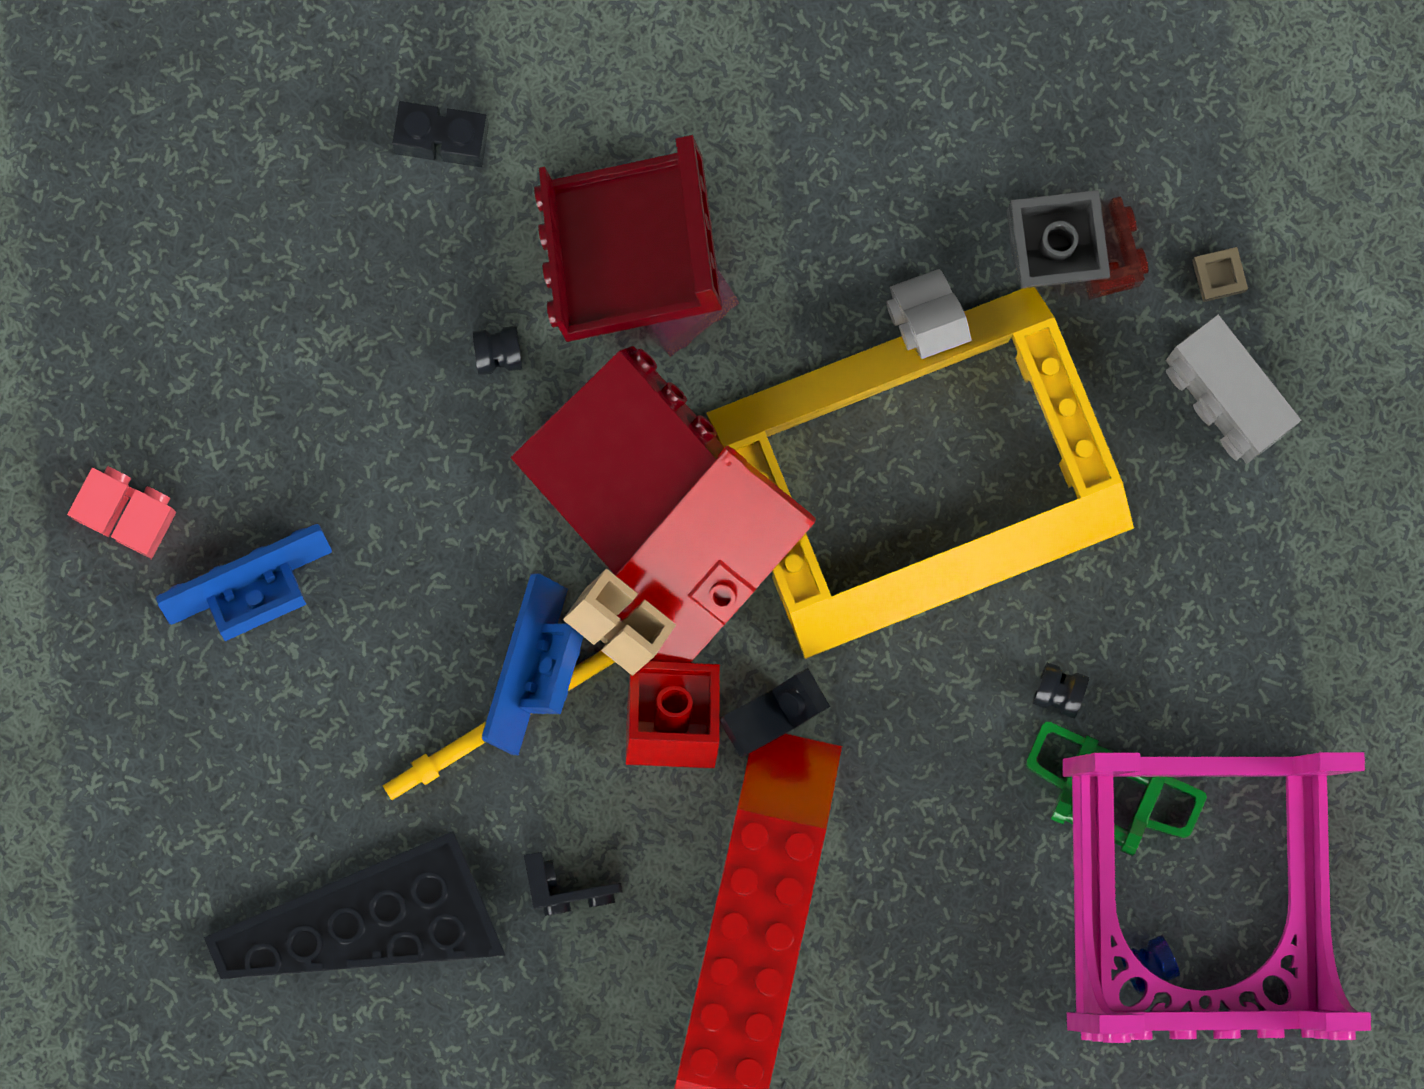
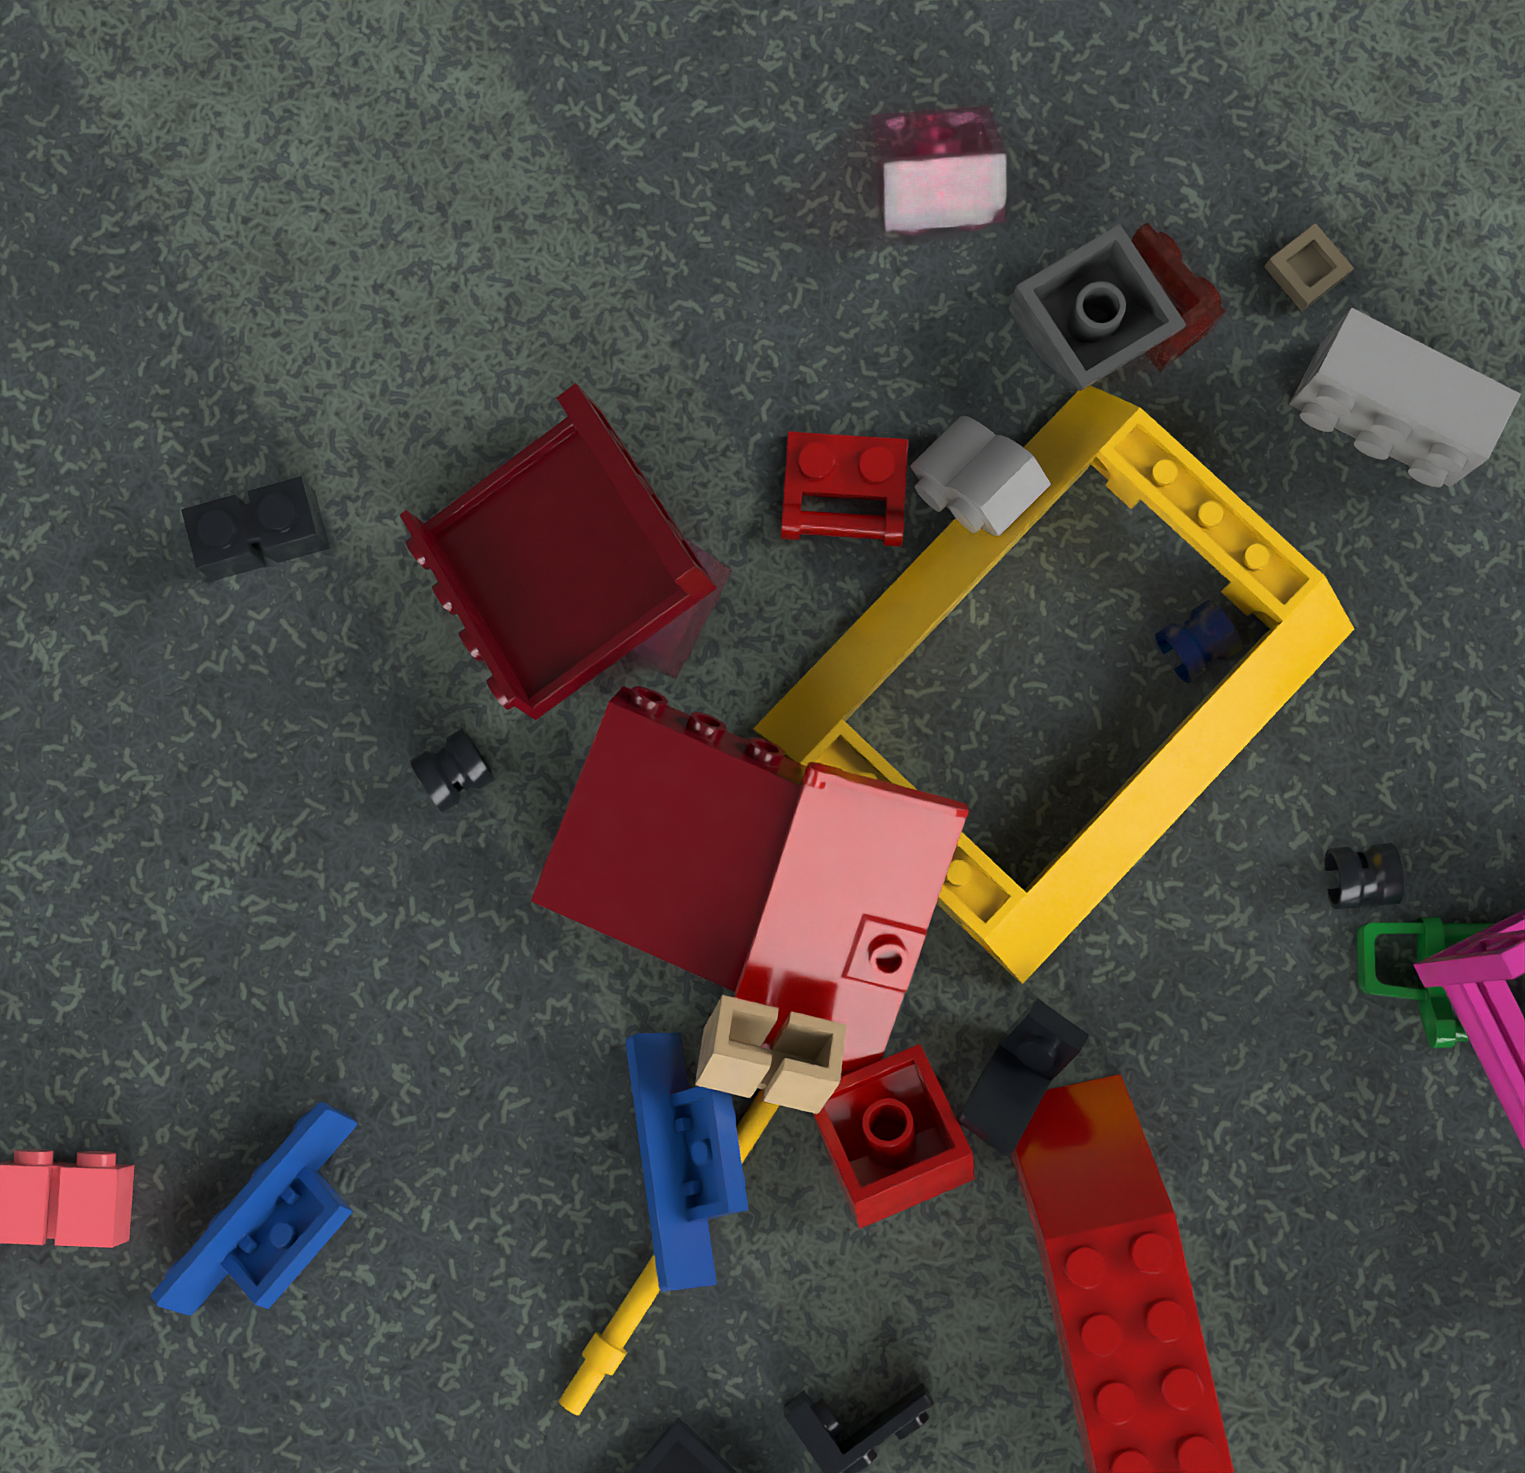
camera: 20 degrees left, 0 degrees up
(846, 269) = (845, 469): none -> red plate
(1002, 96) = (940, 169): none -> slope
(1026, 488) = (1202, 639): none -> clear blue wheel

